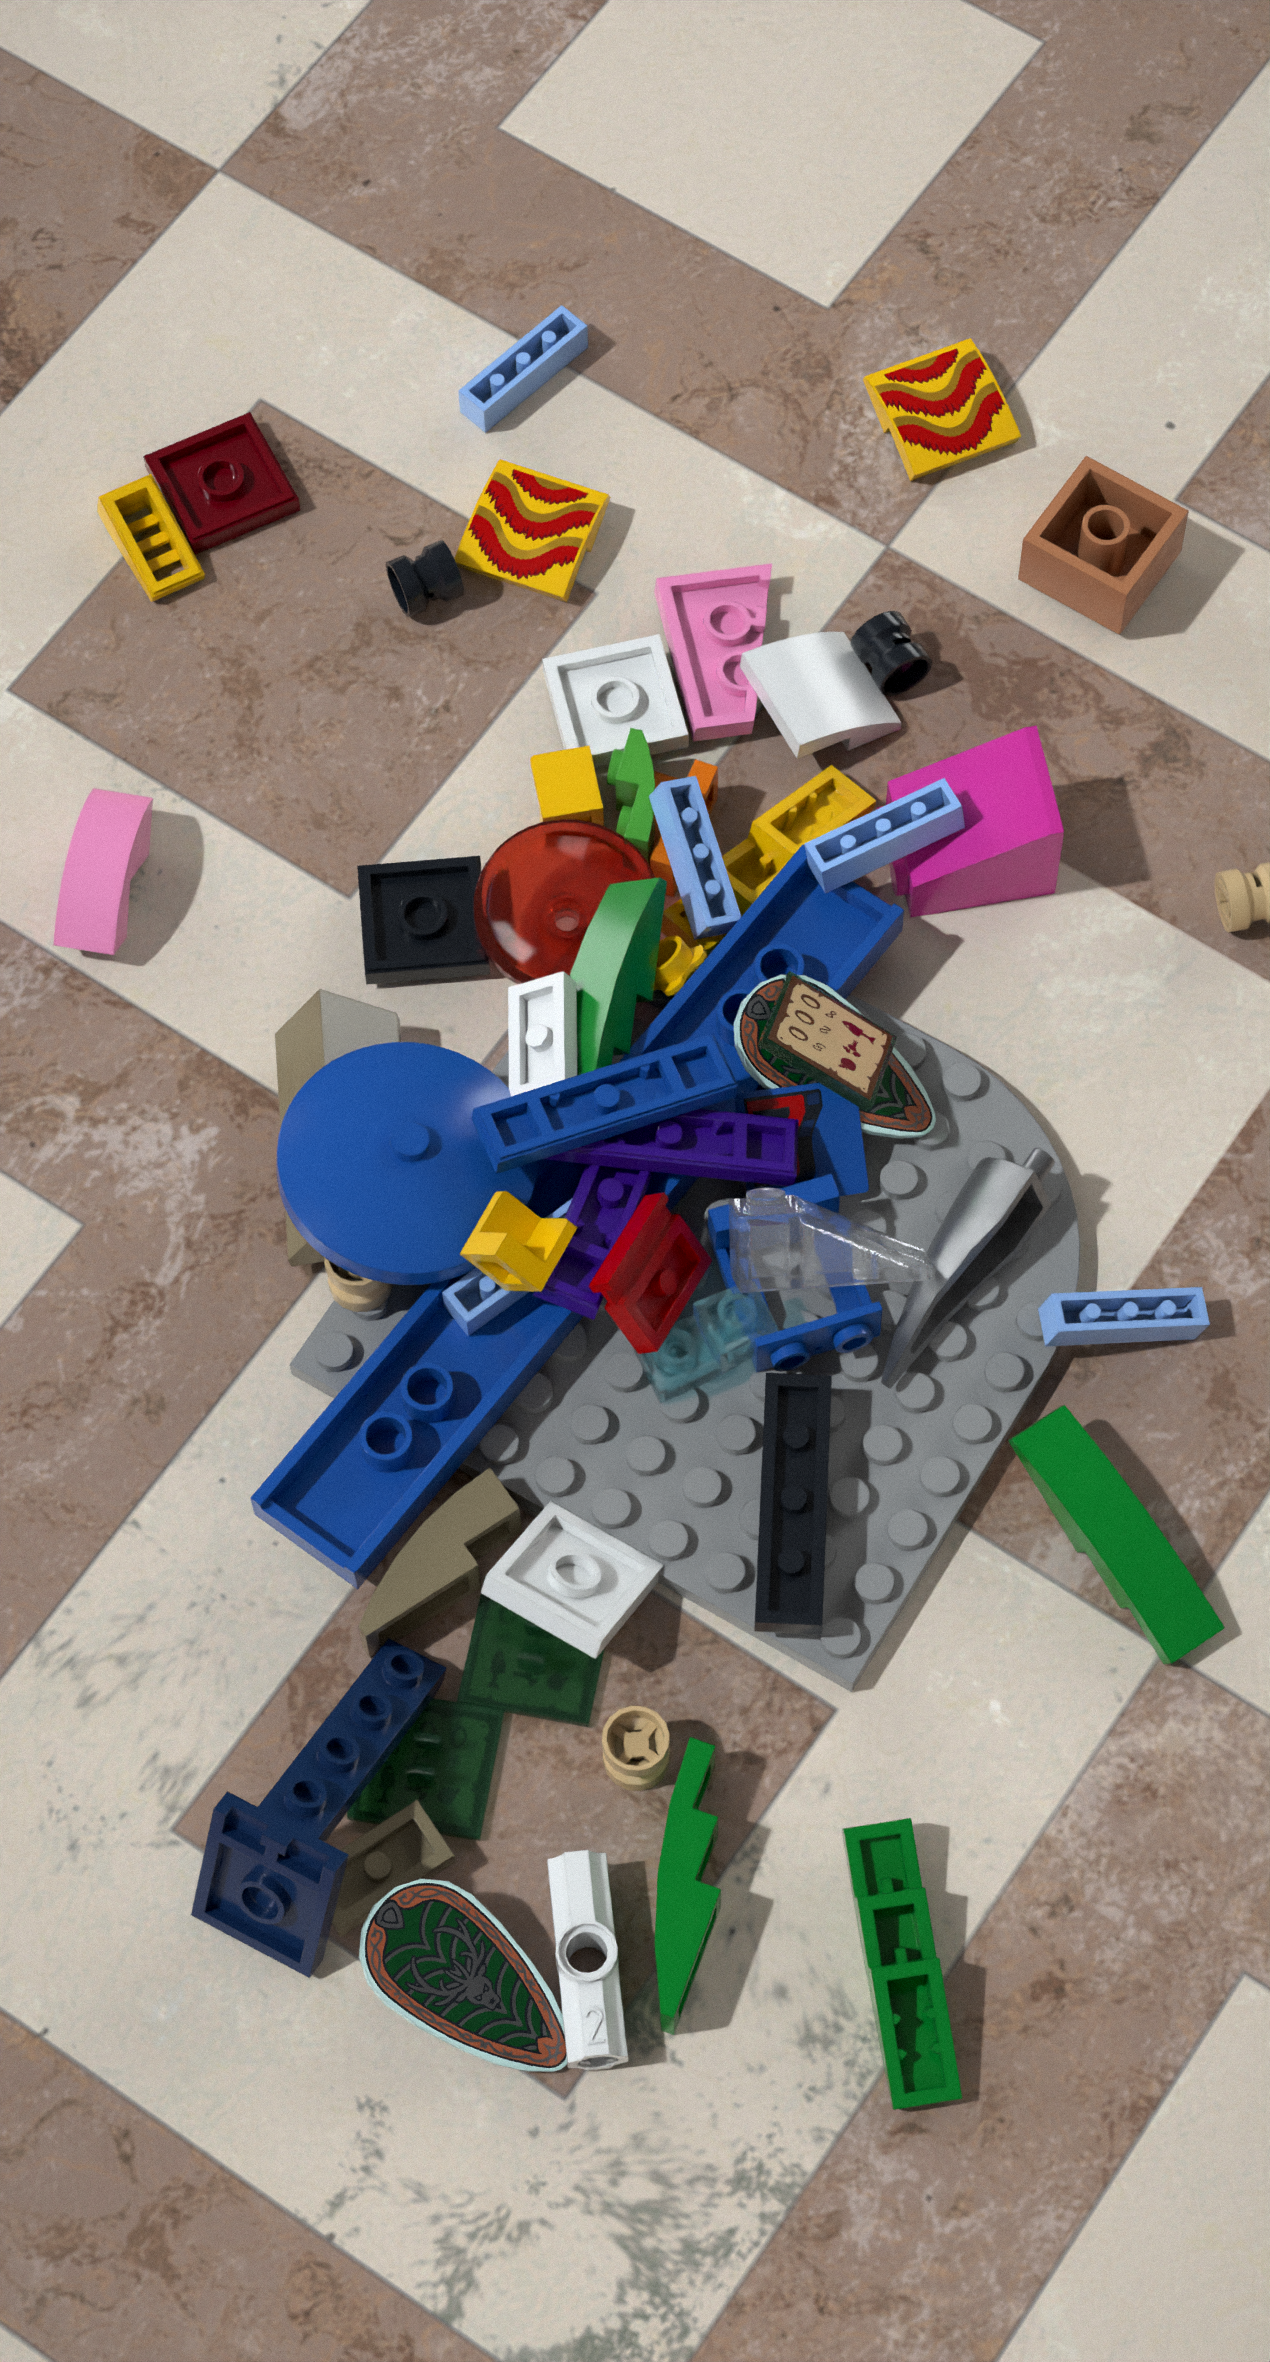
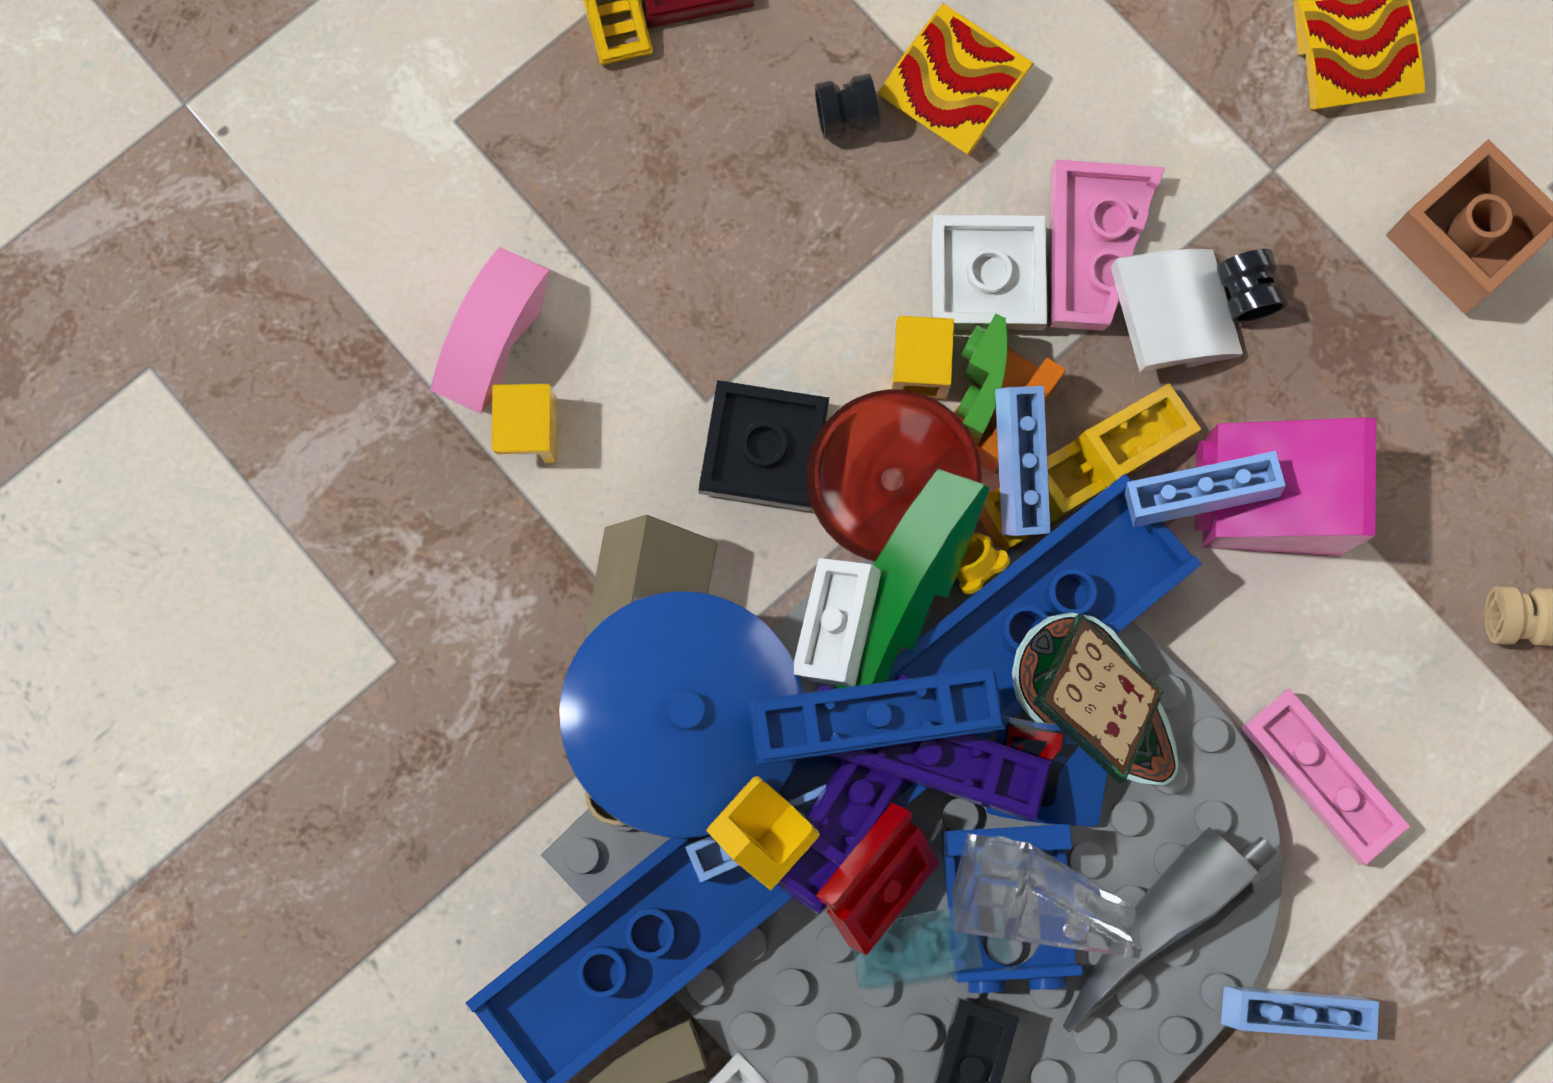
camera: 15 degrees right, 15 degrees up
(163, 945) = (524, 420): none -> yellow panel
(1091, 1095) = (1325, 777): none -> bright pink plate

